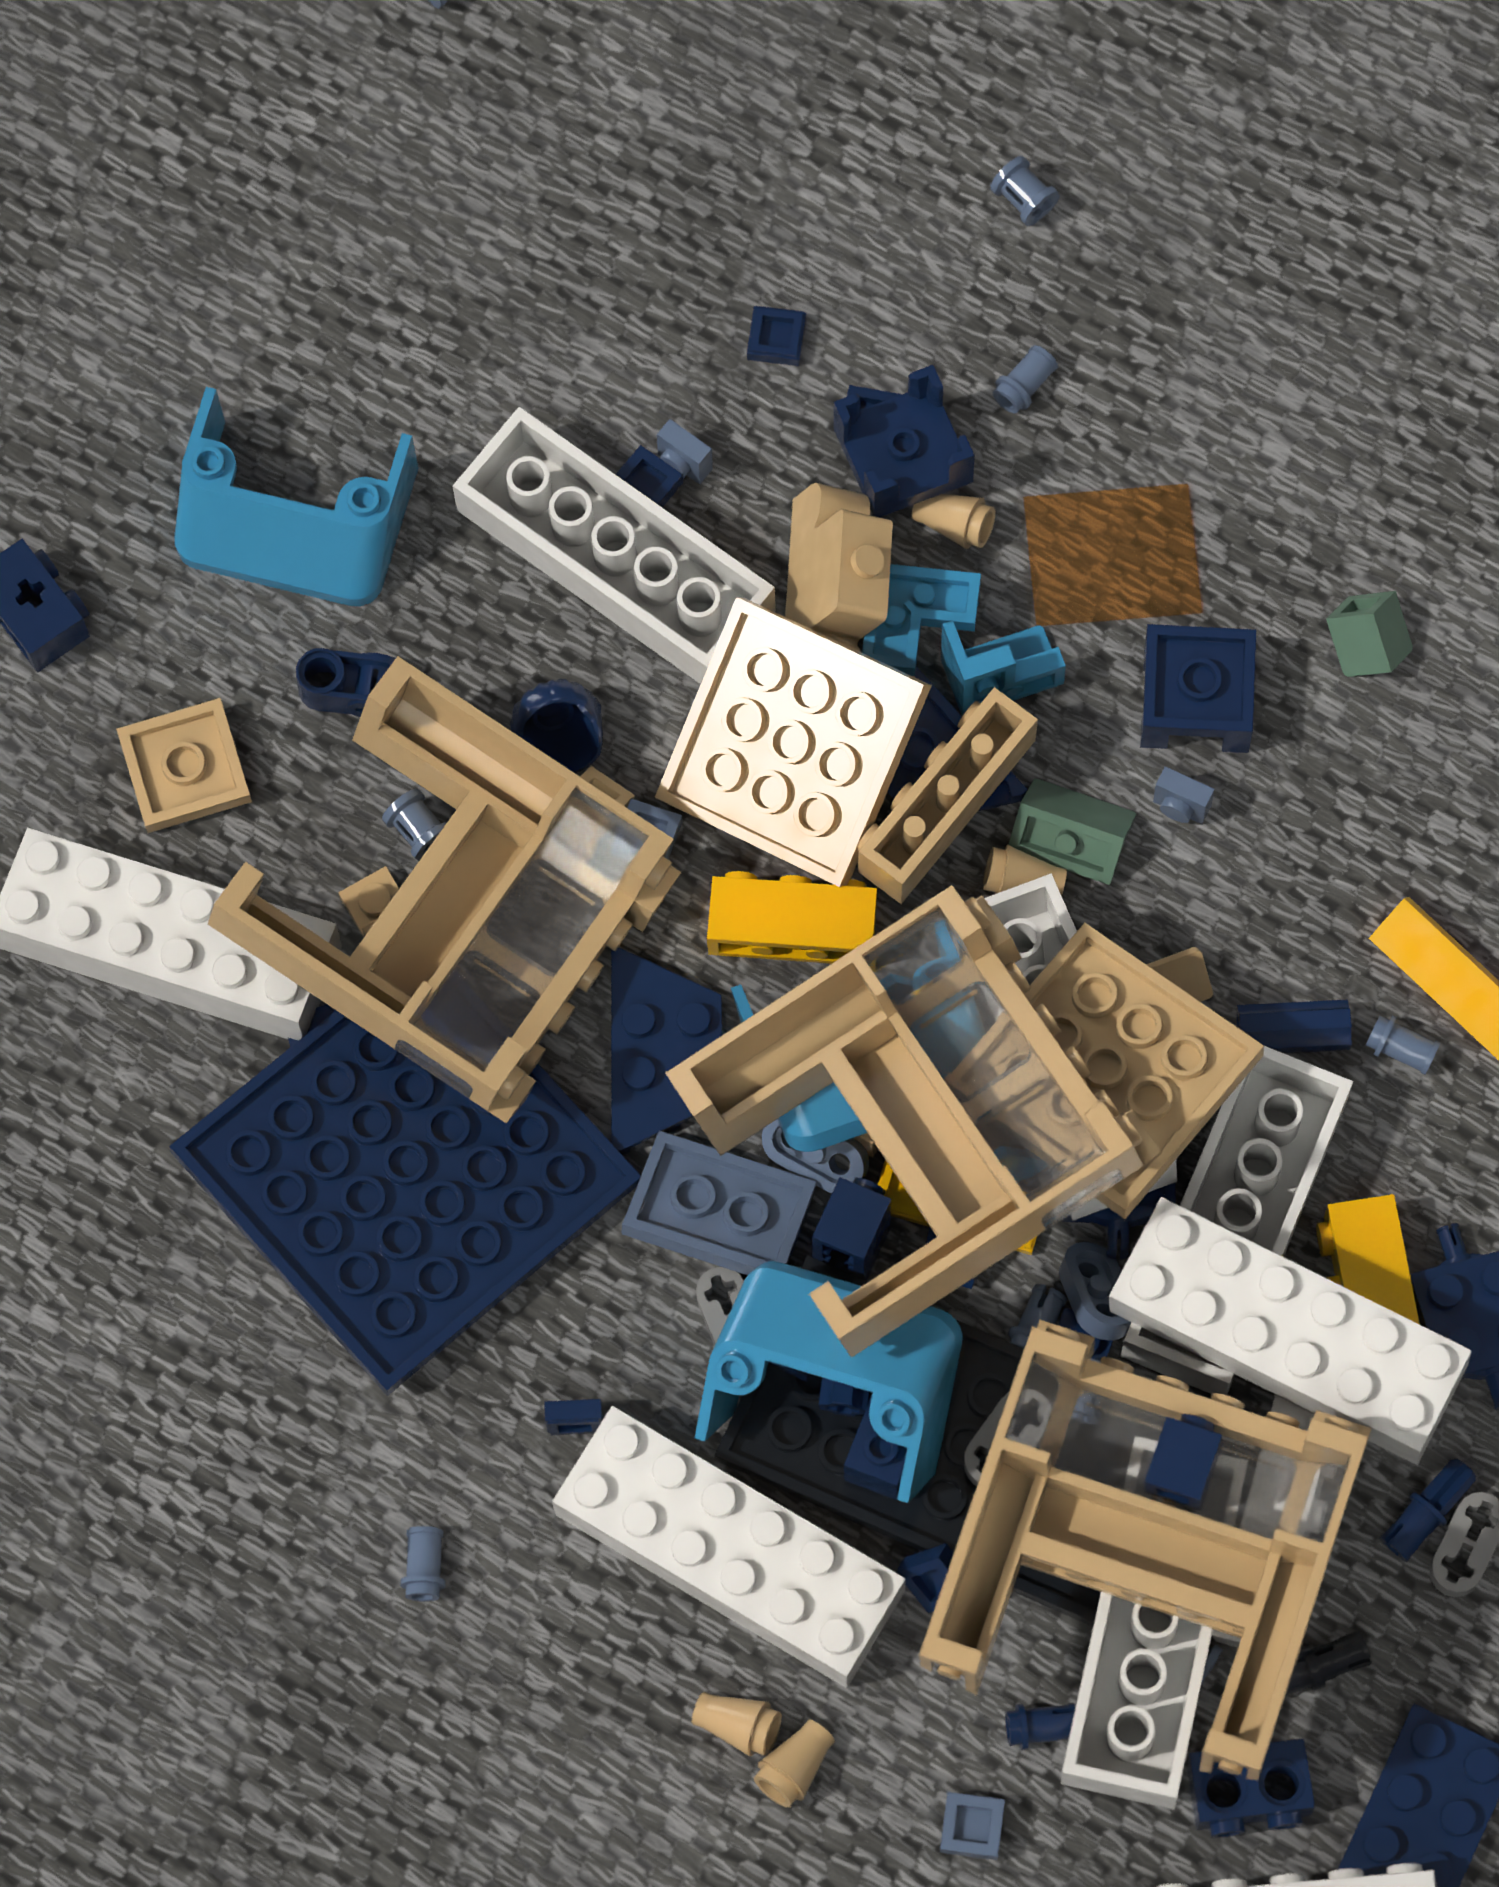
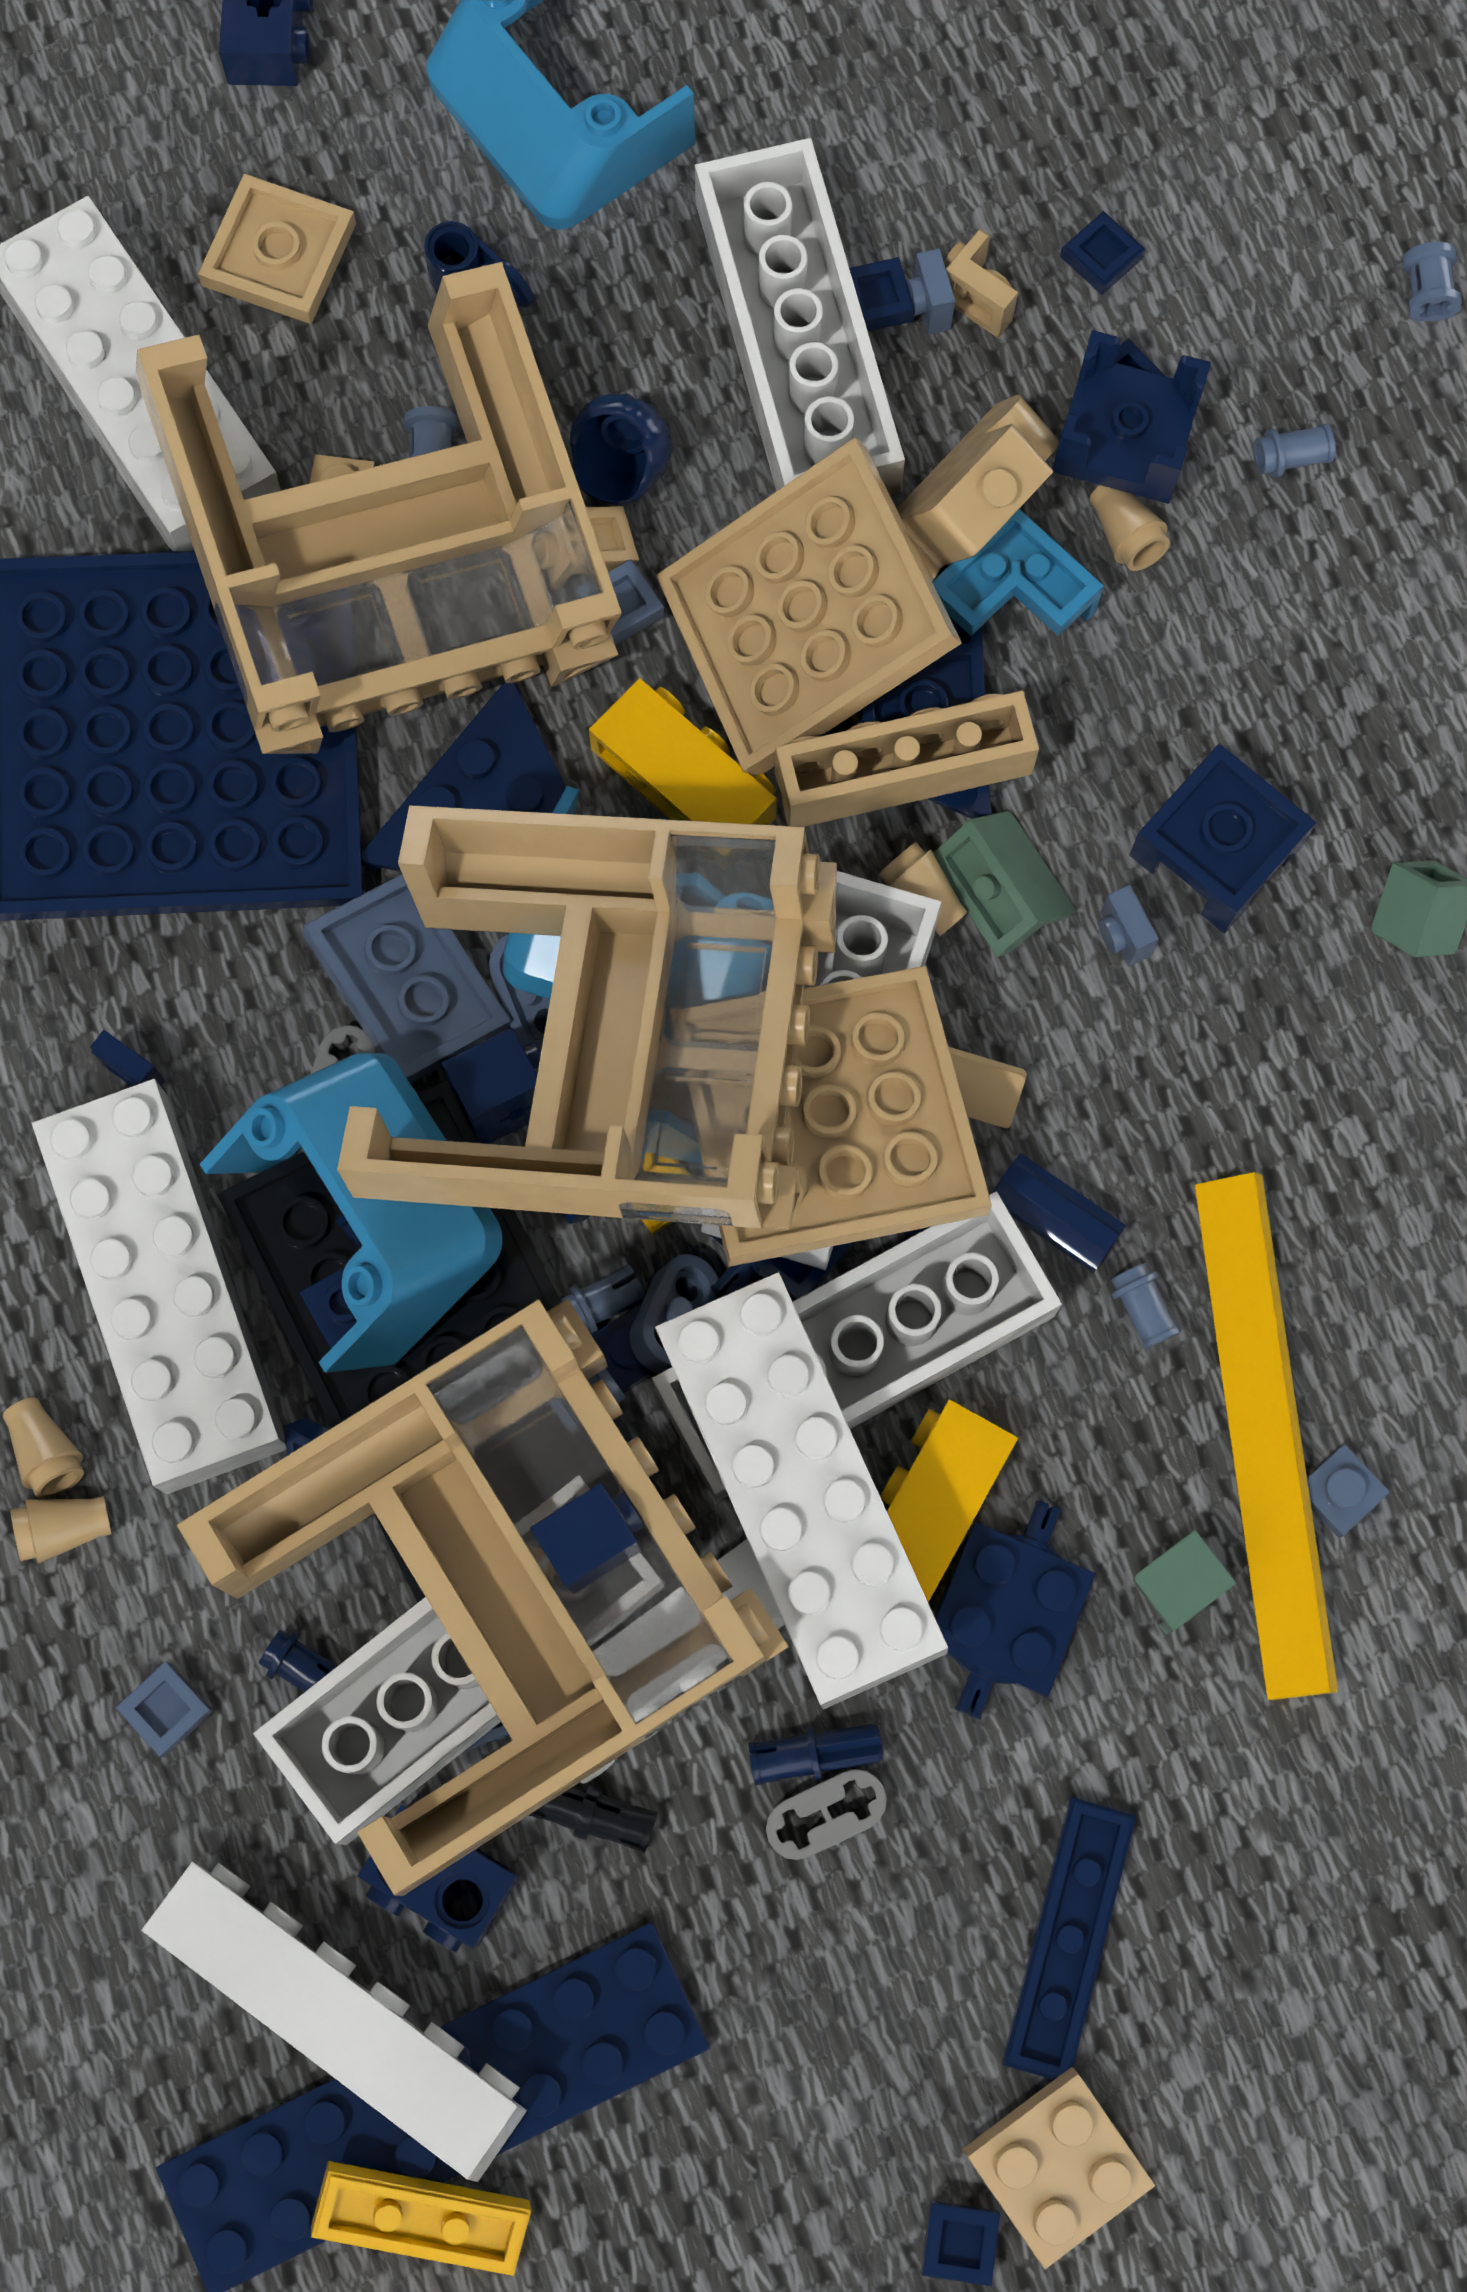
camera: 35 degrees right, 5 degrees up
(719, 428) = (978, 292): none -> tan bracket
(1012, 664) = (1060, 690): dark azure panel -> none
(1112, 555) = (1246, 665): clear orange piece -> none

